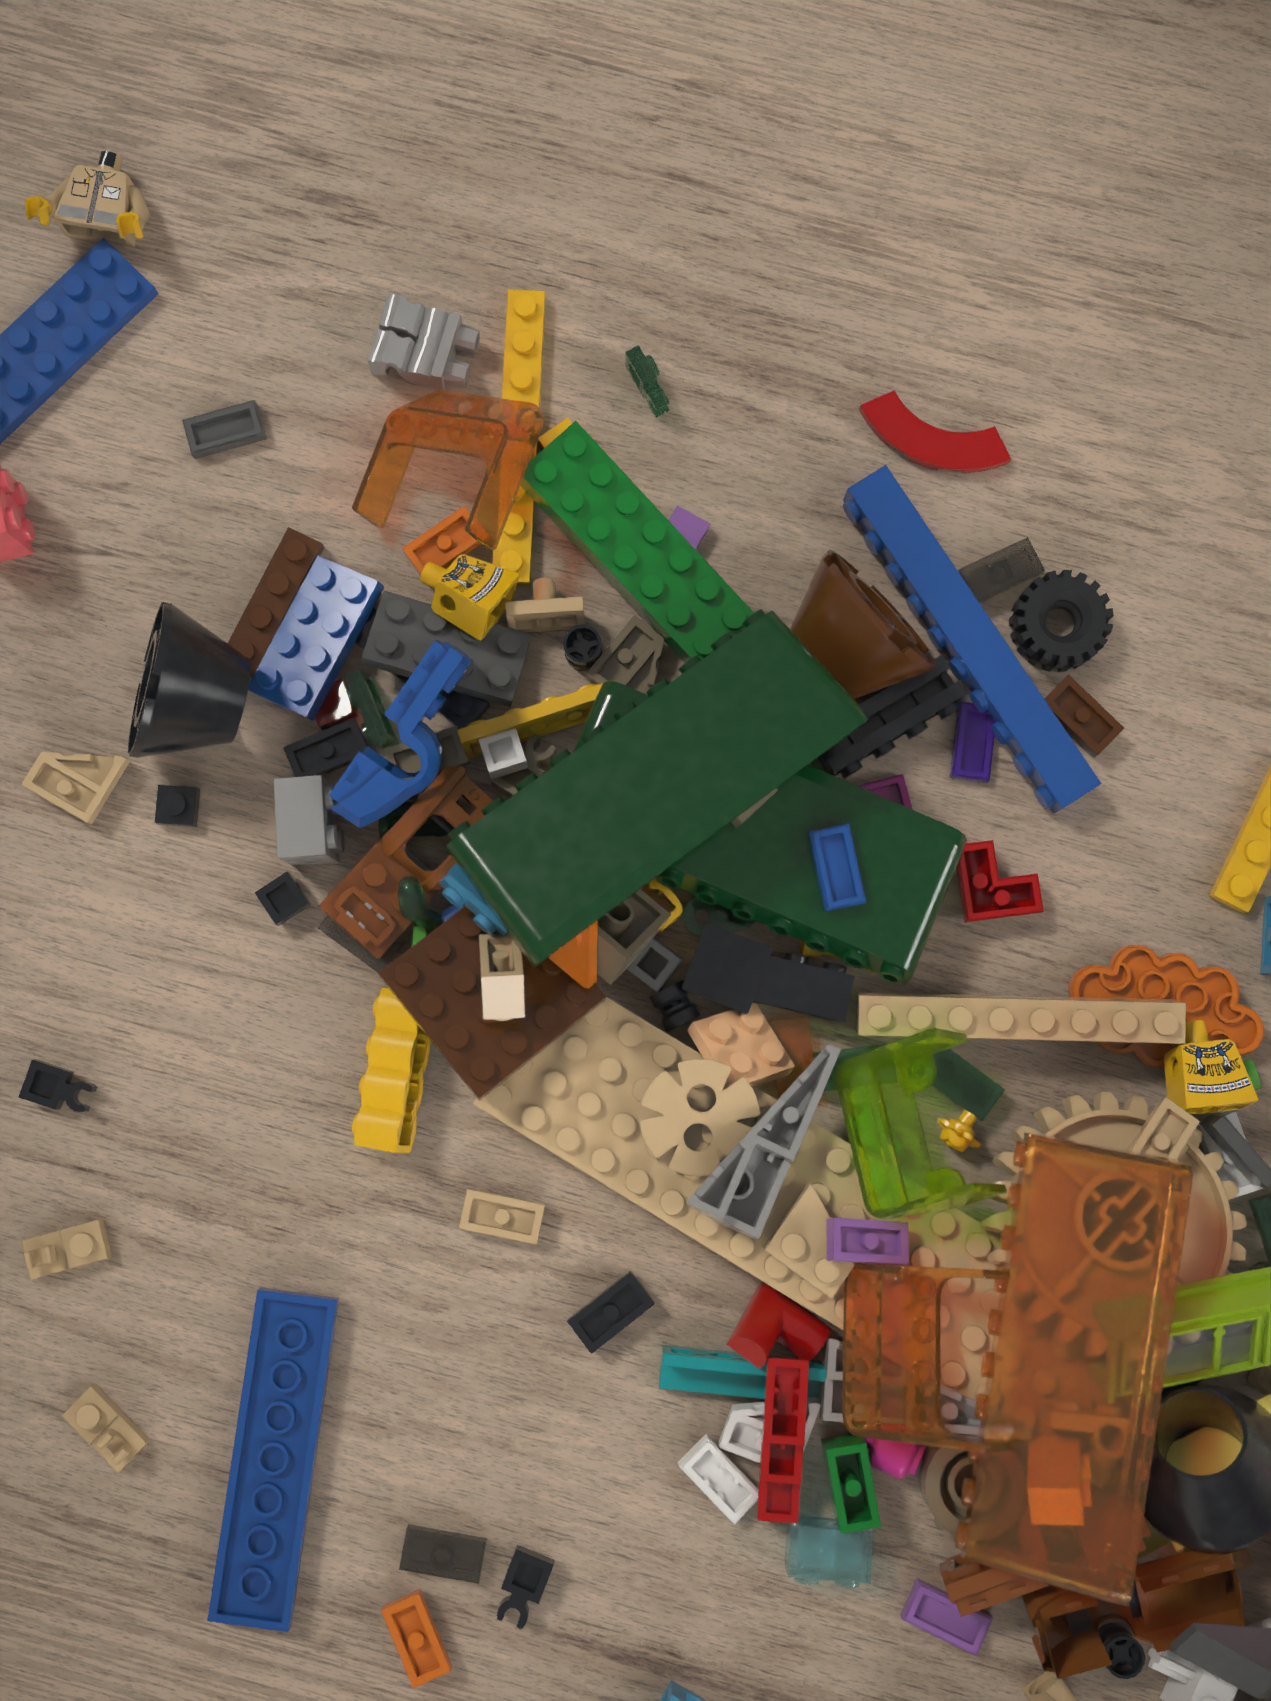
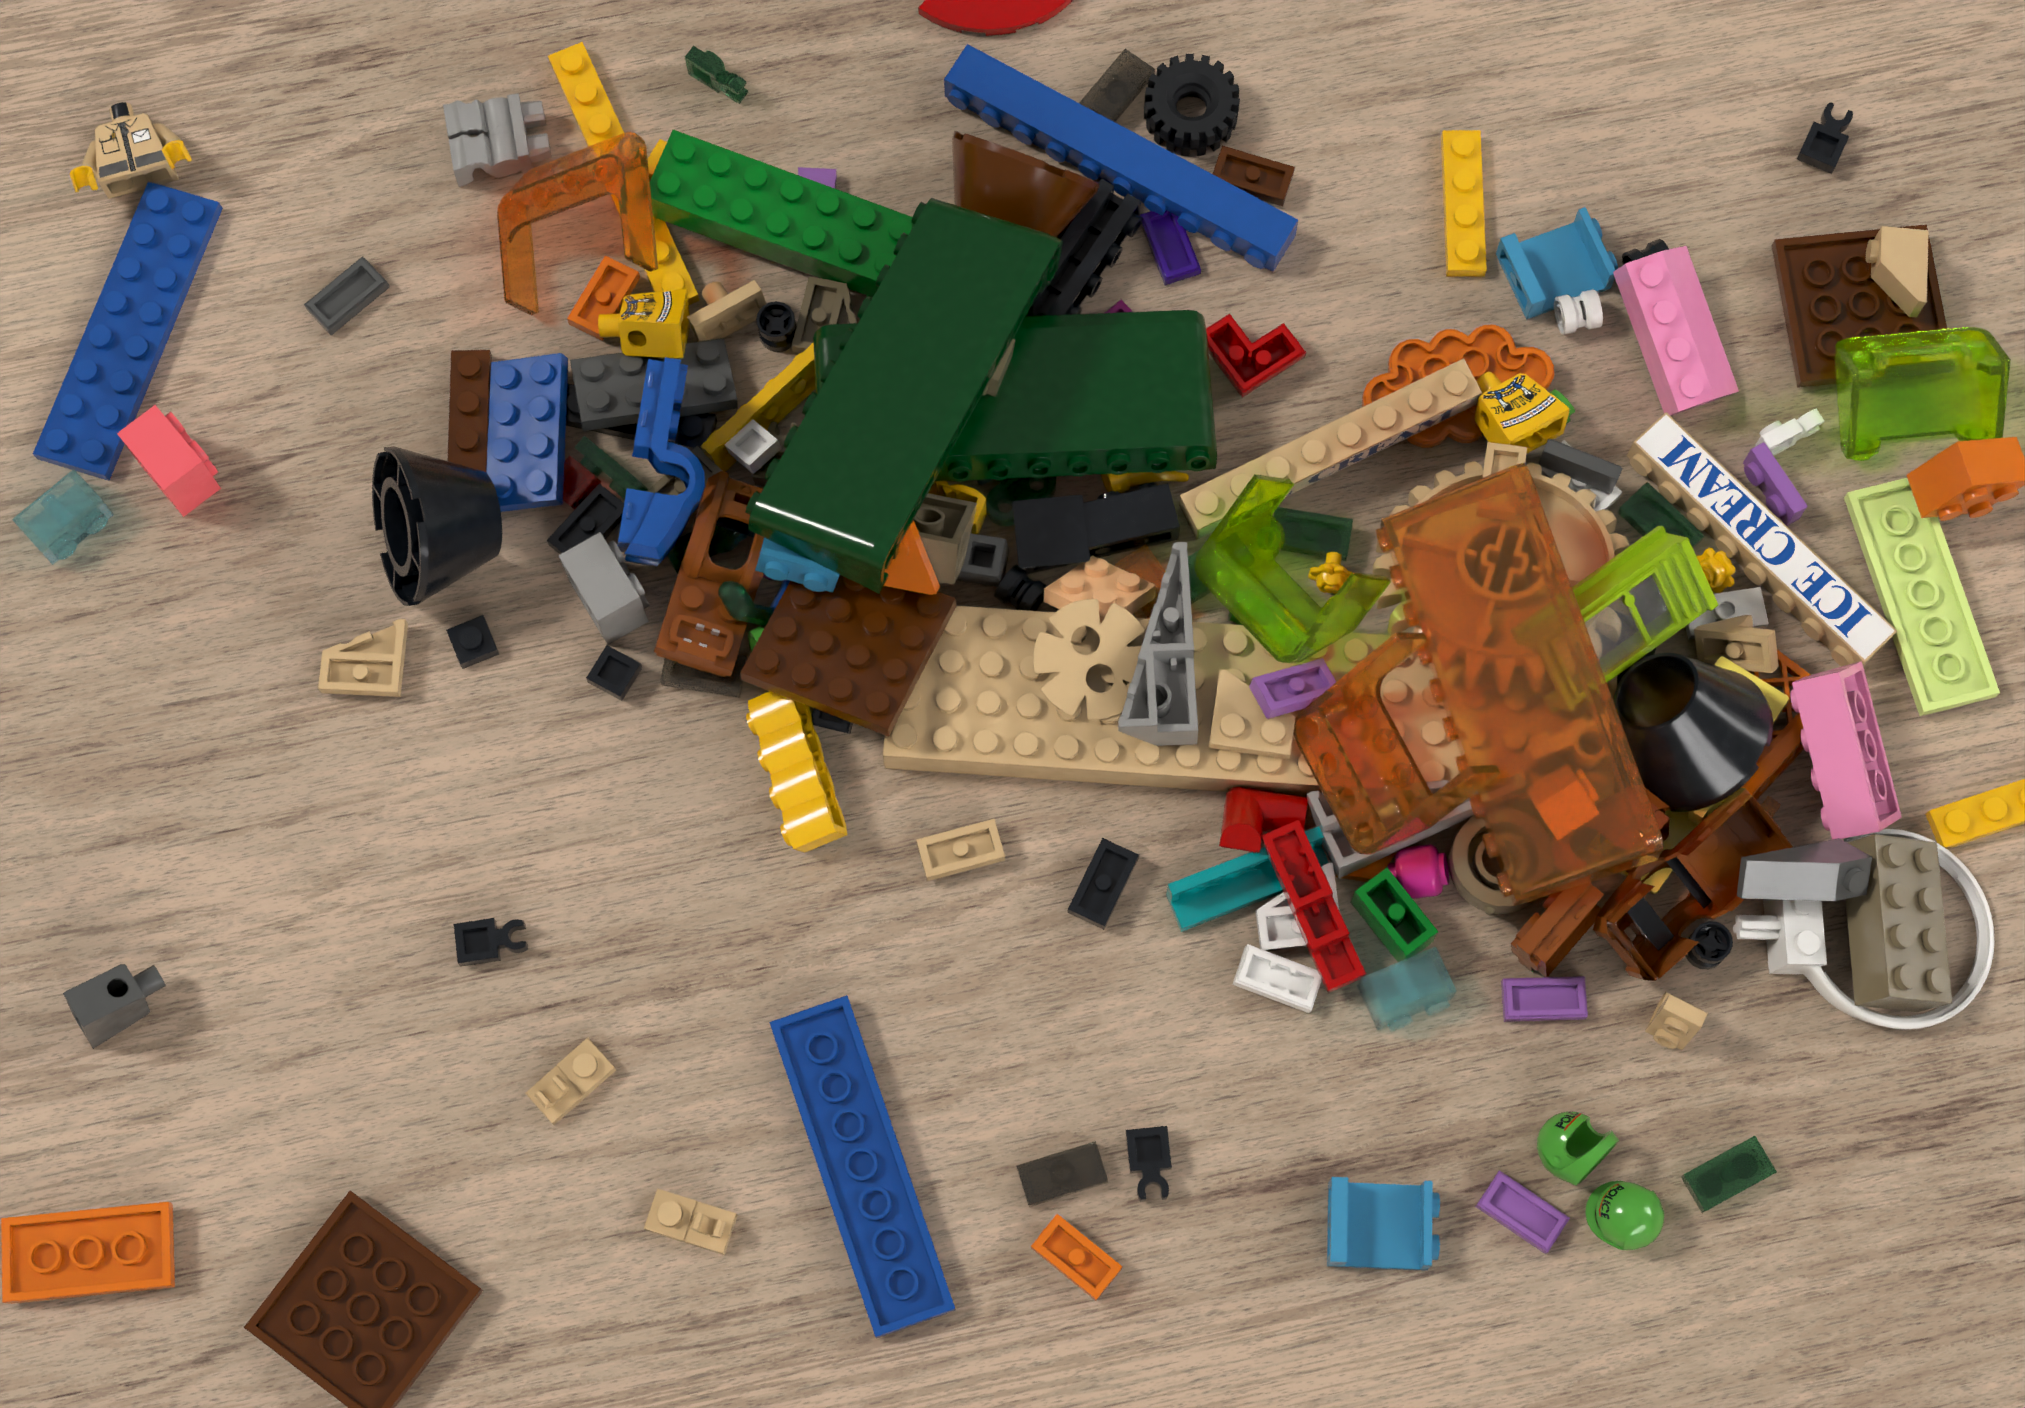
camera: 25 degrees left, 10 degrees down
(501, 978) = (855, 616): tan slope -> none
(836, 867) = (1101, 387): blue tile -> none

